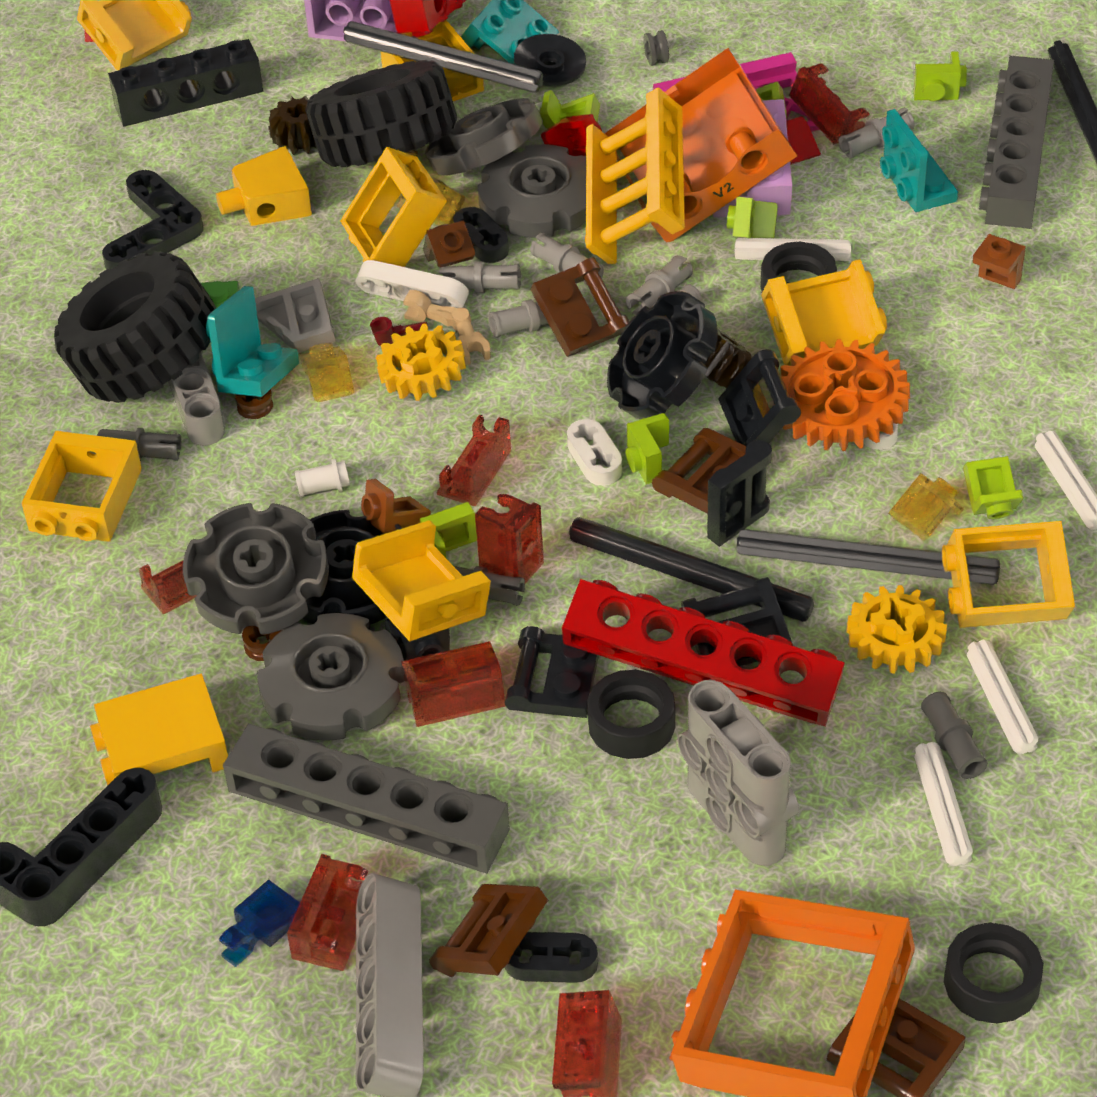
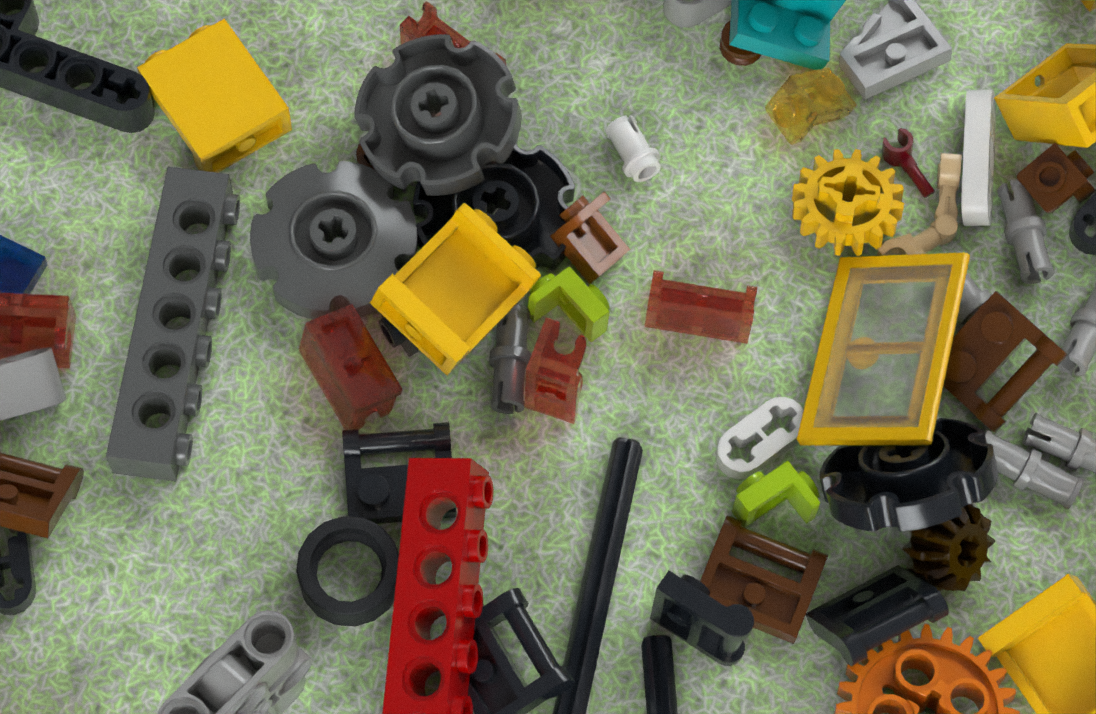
camera: 70 degrees right, 20 degrees up
(555, 356) = (884, 350): none -> clear door

